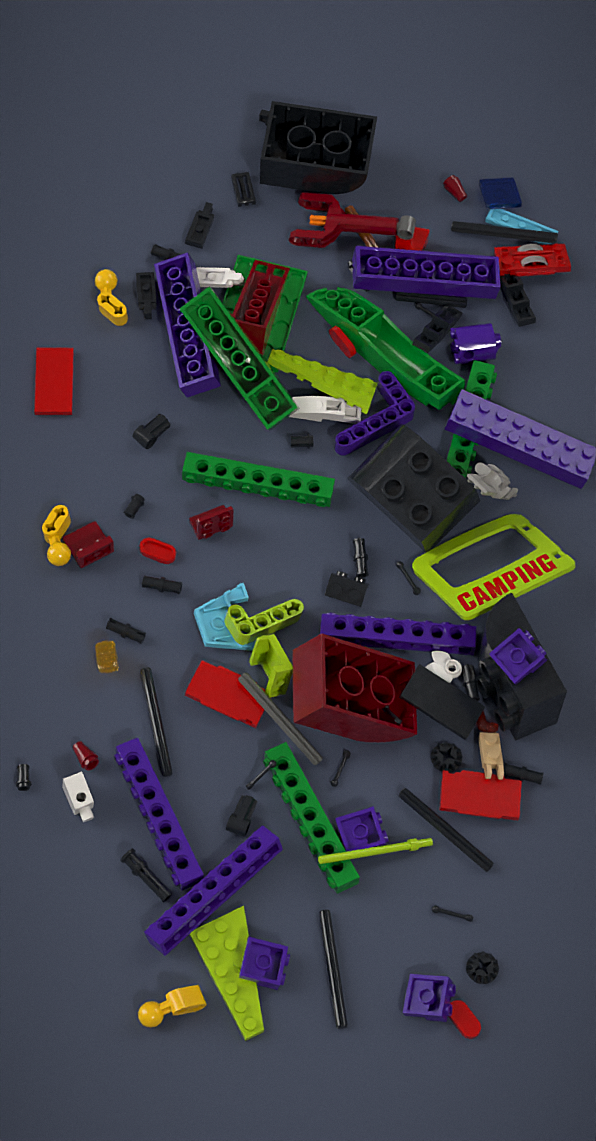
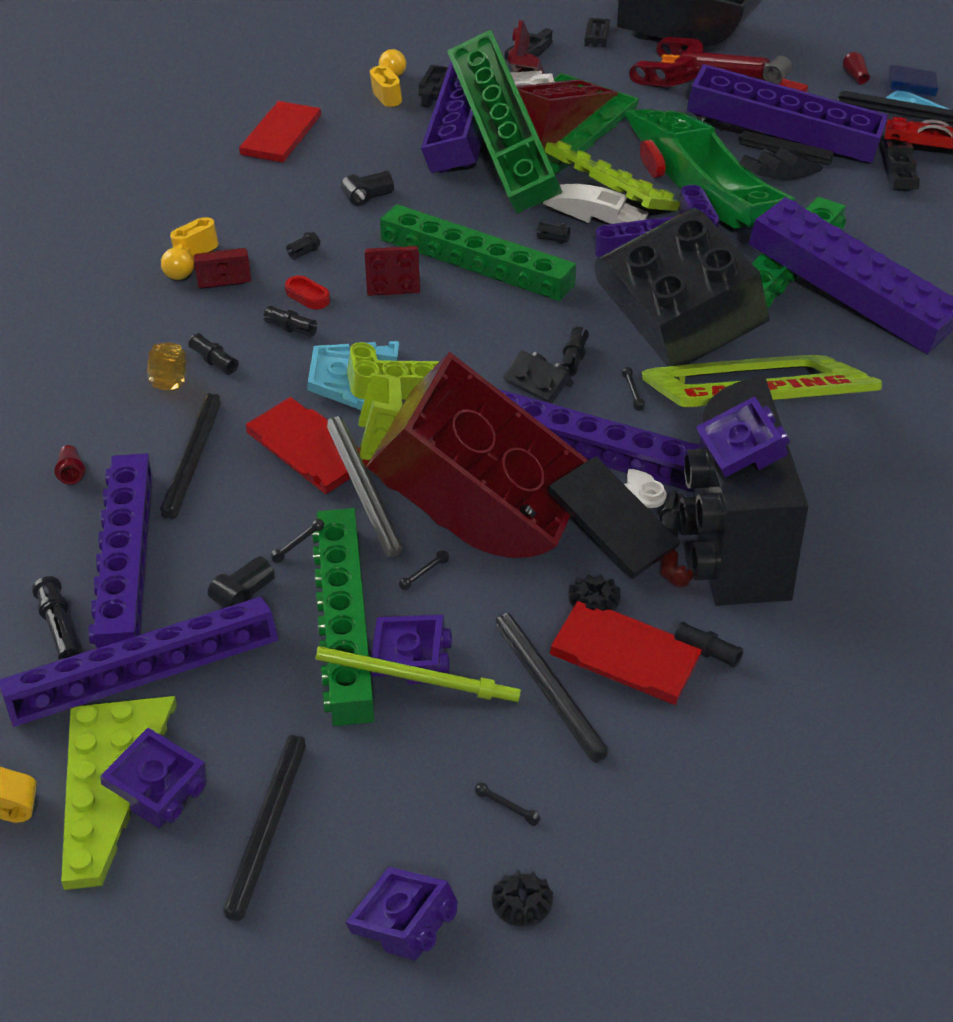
camera: 25 degrees right, 20 degrees down
(75, 789) = (27, 508): white torso -> none
(216, 261) = (518, 55): none -> dark red bracket
(464, 1020) = (452, 971): red tile -> none
(474, 343) = (833, 177): dark purple cylinder -> none
(491, 754) = (666, 603): tan hinge -> none
(492, 482) = (794, 291): light grey piece -> none

